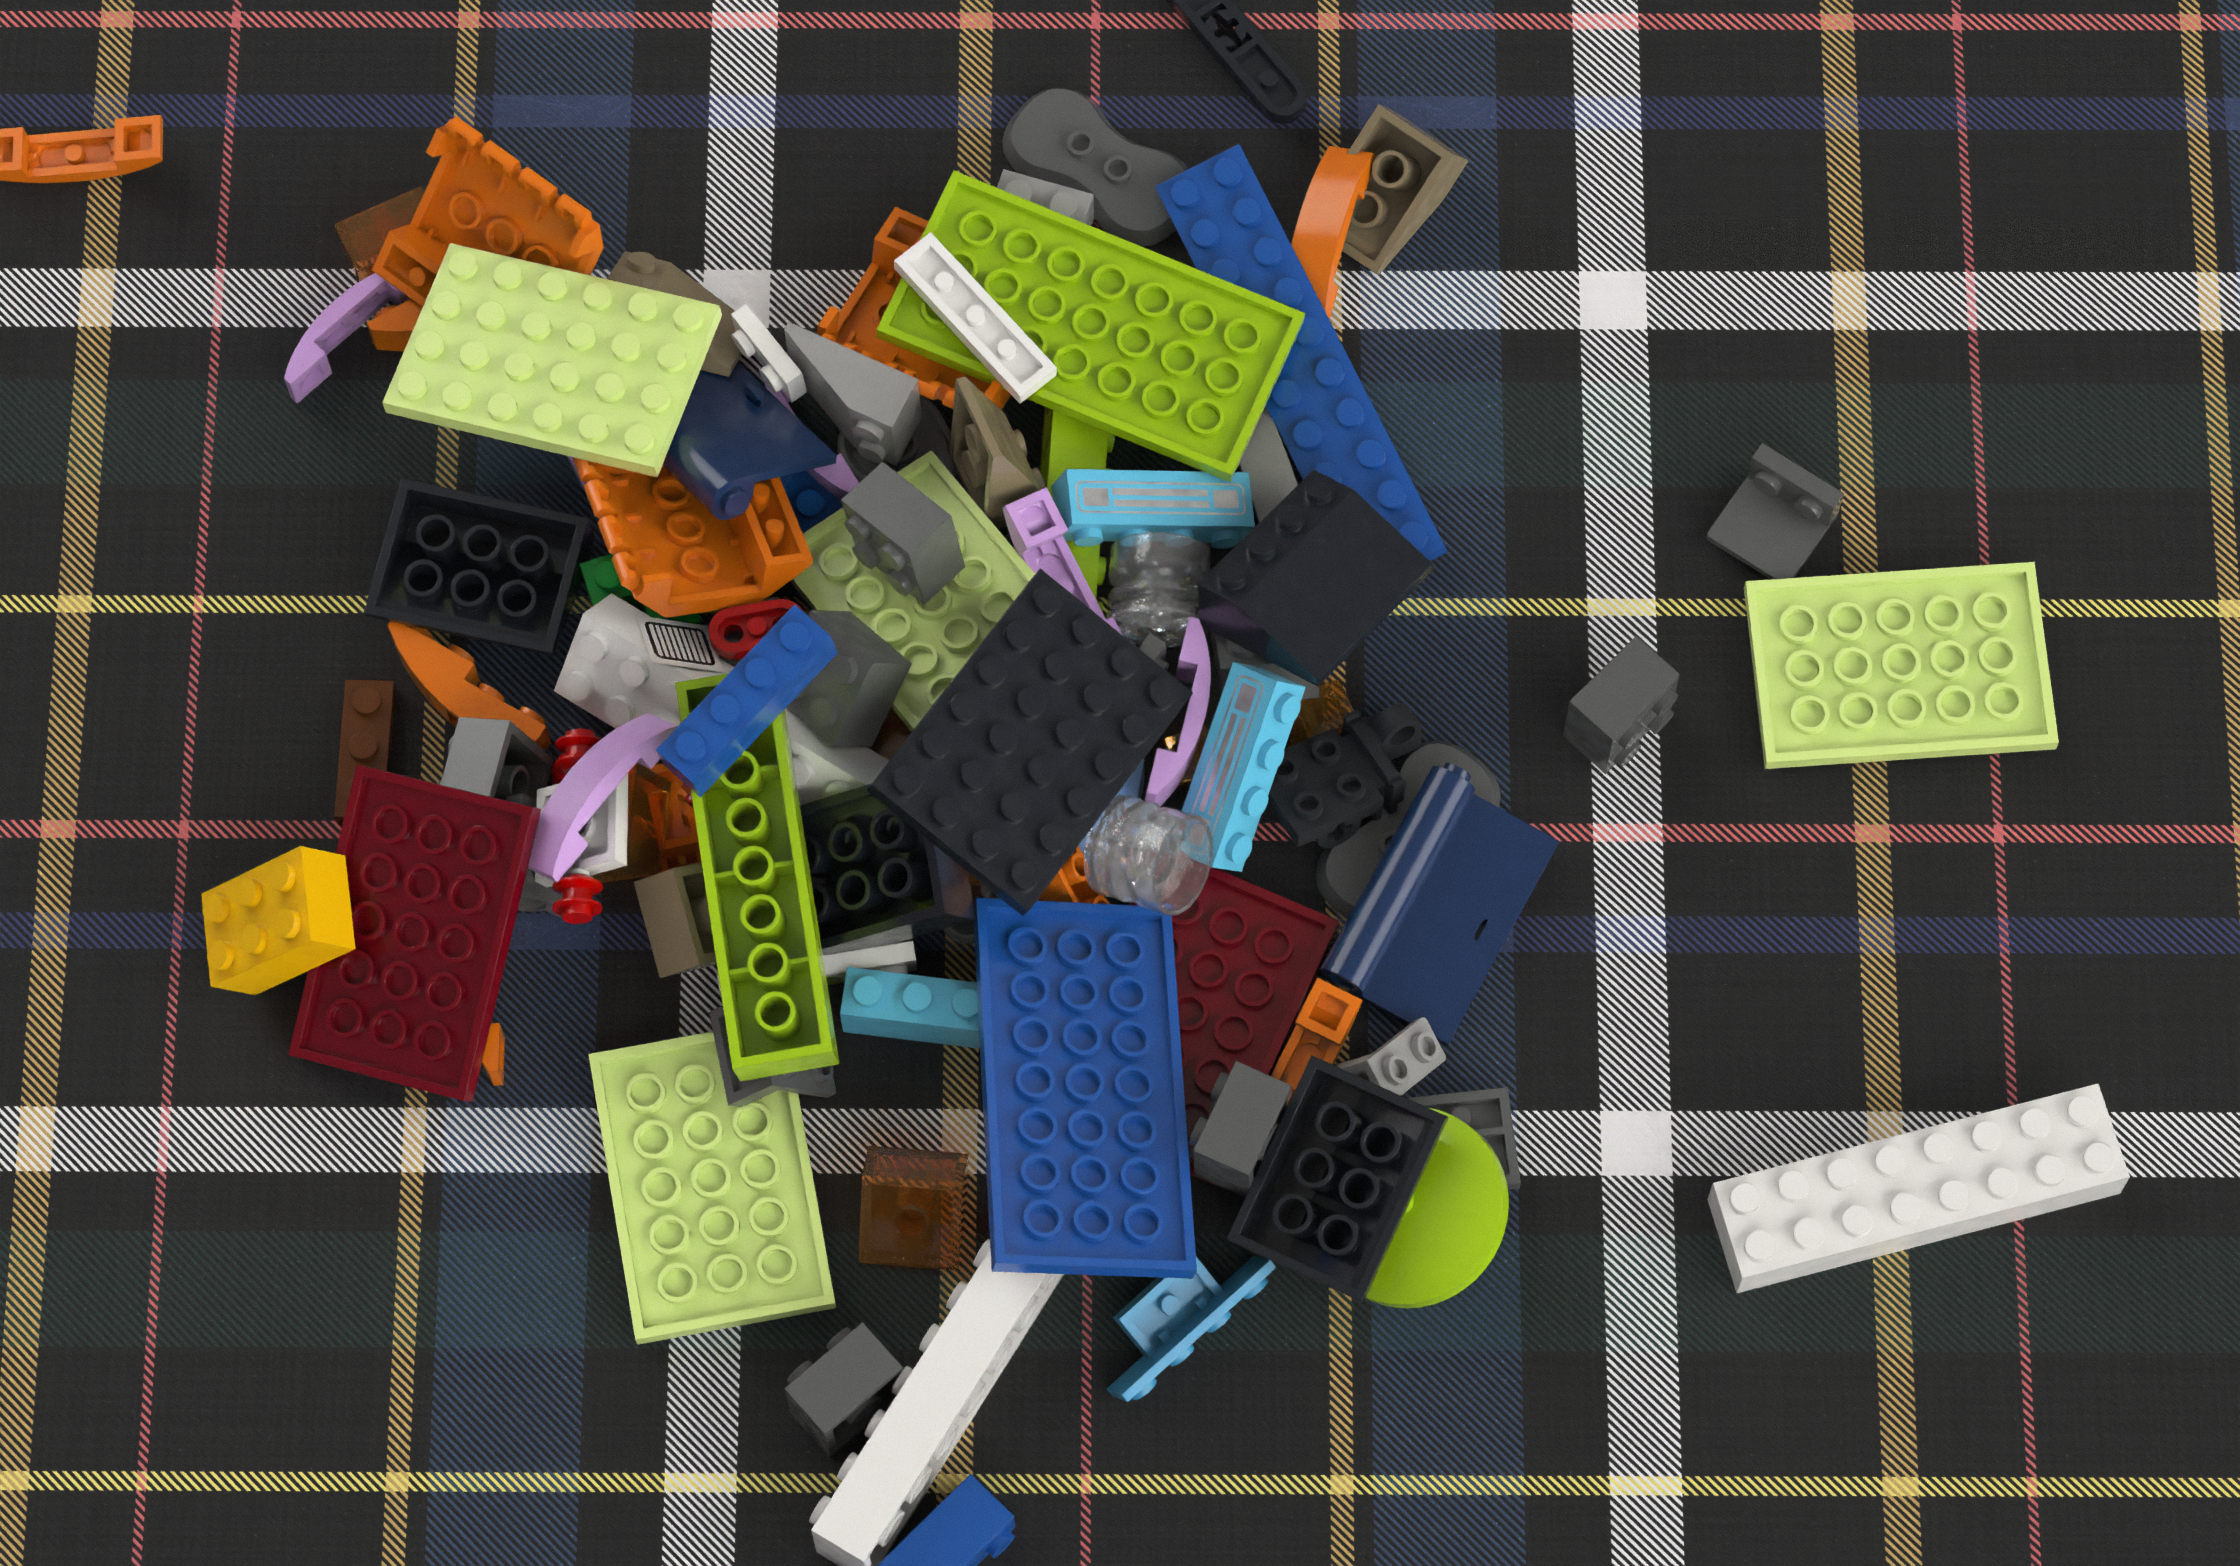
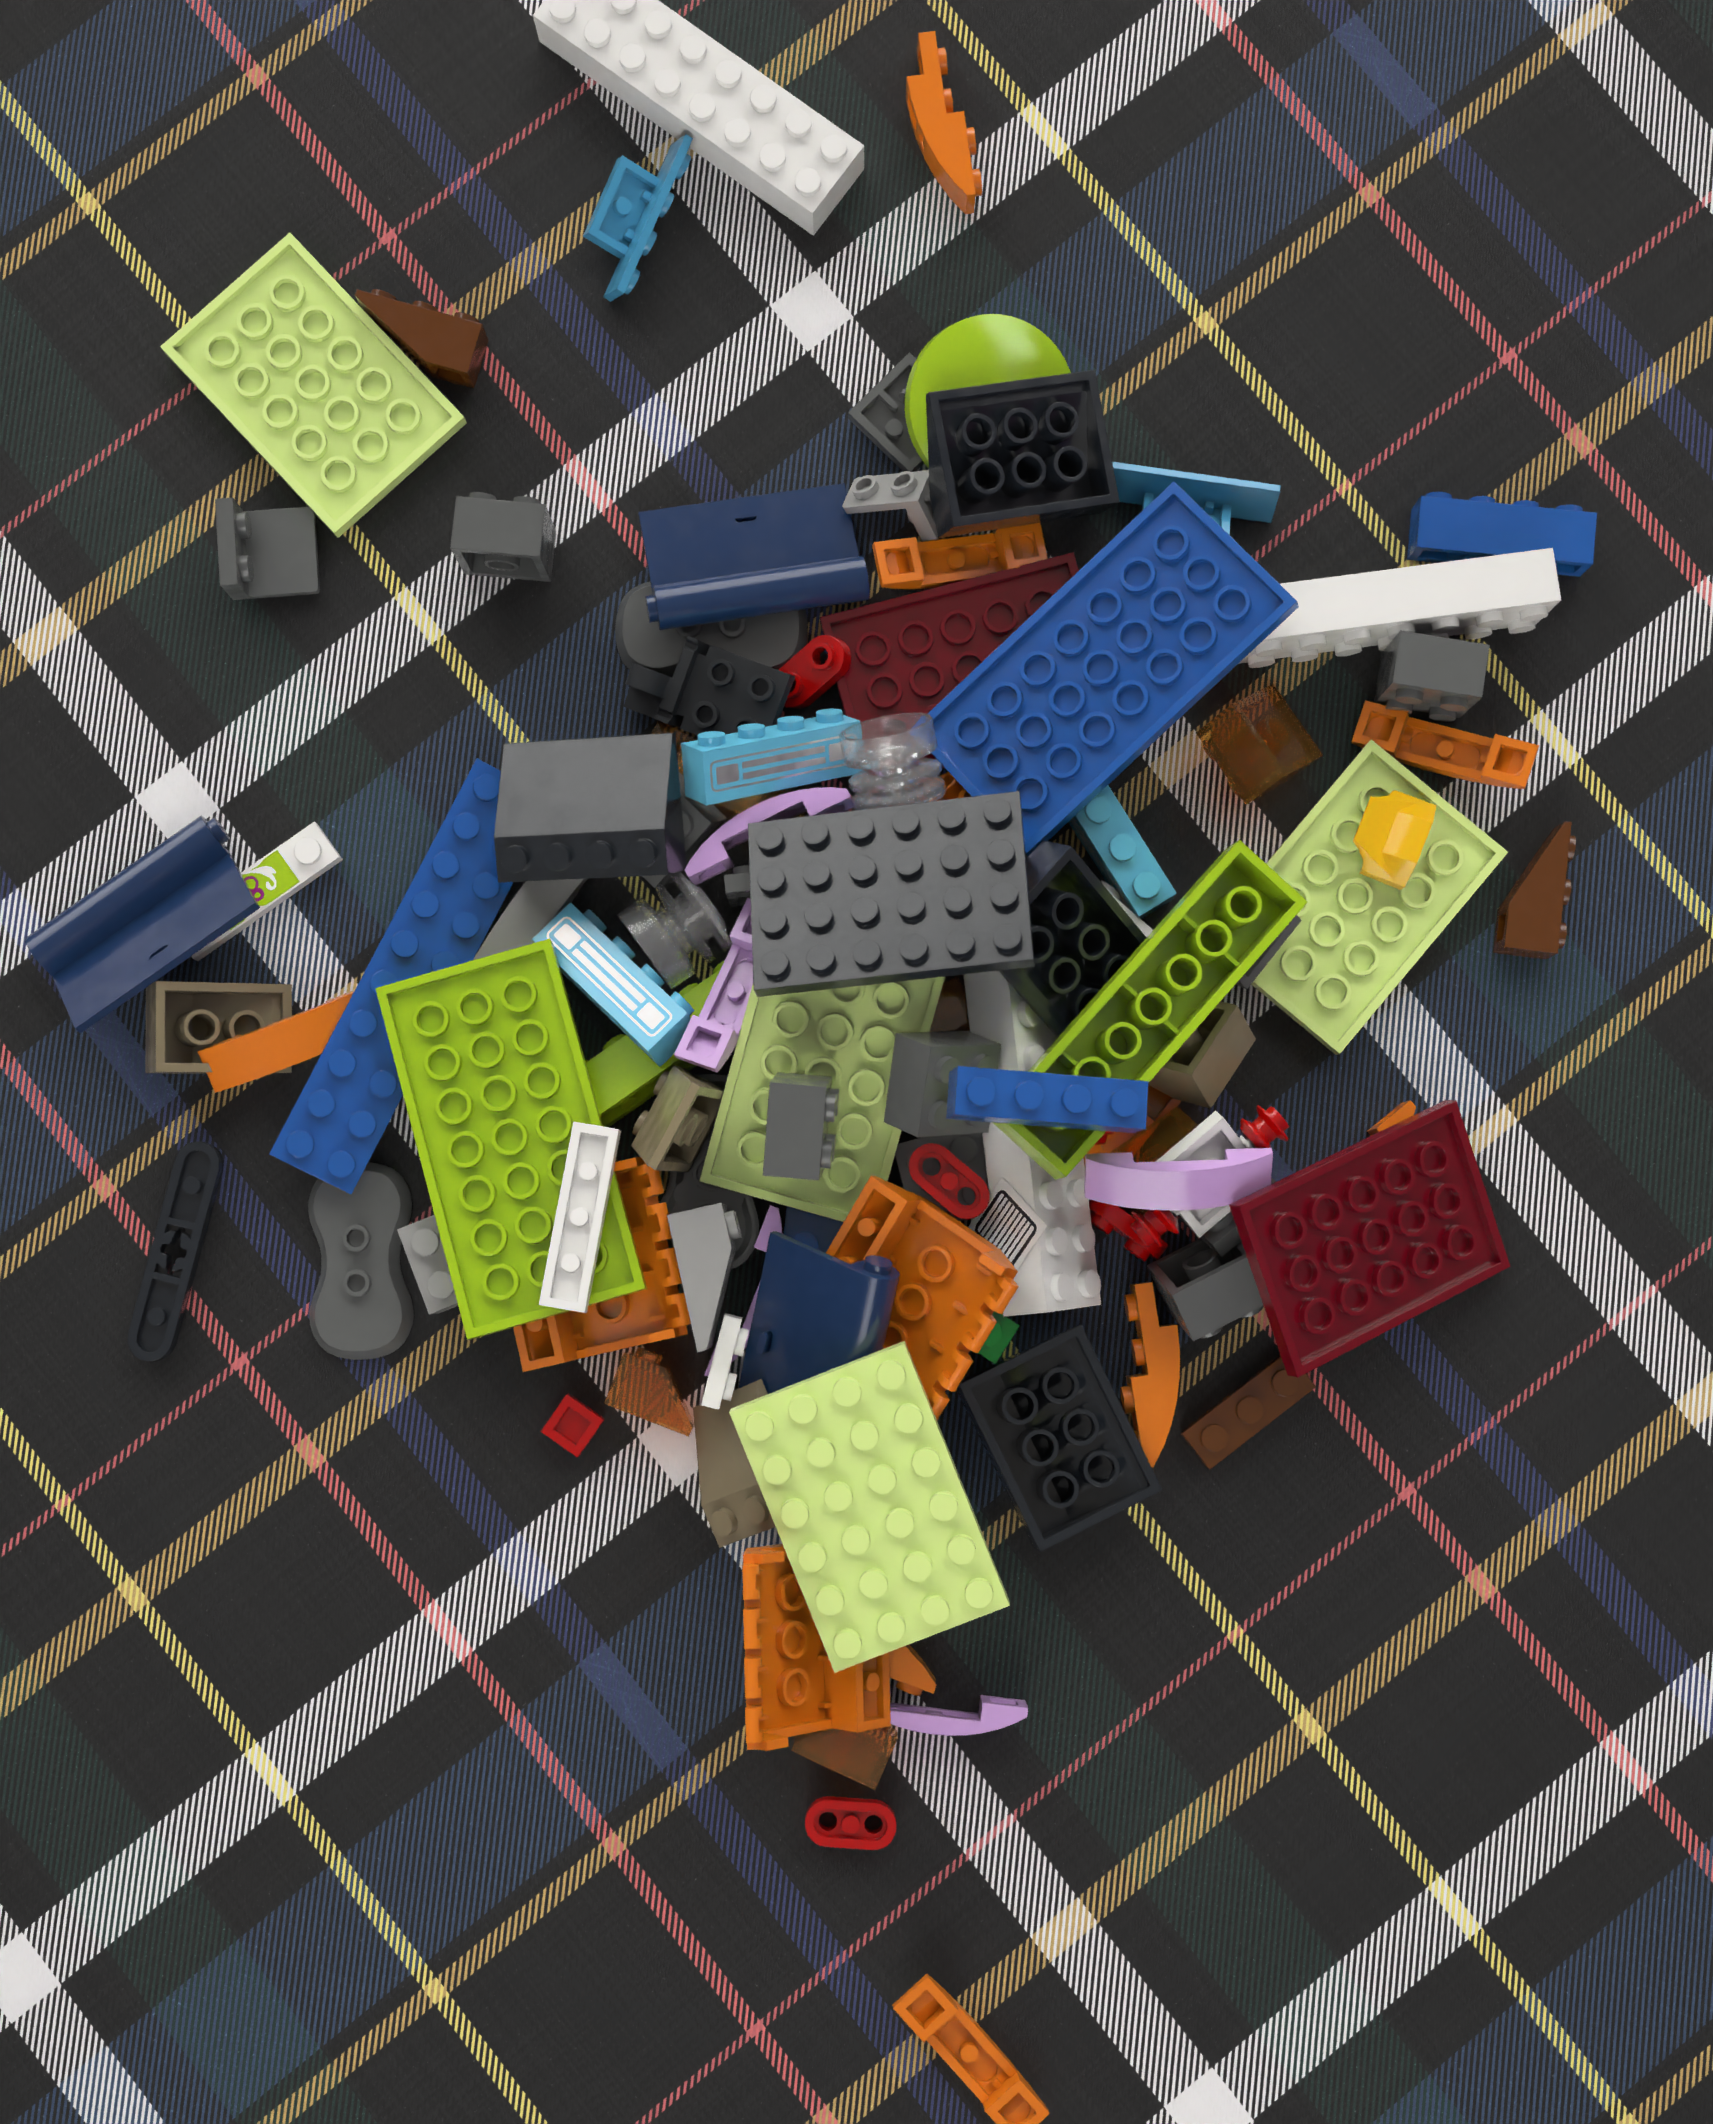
camera: 130 degrees left, 15 degrees up
(278, 920) = (1441, 1343): yellow brick -> none
(320, 196) = (850, 1825): none -> red plate
(567, 1319) = (1532, 911): none -> reddish brown slope
(735, 1241) = (1393, 836): none -> yellow slope
(763, 1369) = (1446, 750): none -> orange slope
(793, 294) = (649, 1392): none -> clear orange slope
(822, 222) = (572, 1425): none -> red plate
(1240, 1127) = (1039, 543): dark grey brick -> none
(1295, 878) = (812, 676): none -> red plate
(1481, 304) = (282, 875): none -> white plate
(1519, 192) = (143, 922): none -> dark blue door
(1699, 1369) = (938, 130): none -> orange slope
(1850, 1043) = (629, 212): none -> dark azure bracket
(1860, 788) = (439, 342): none -> reddish brown slope

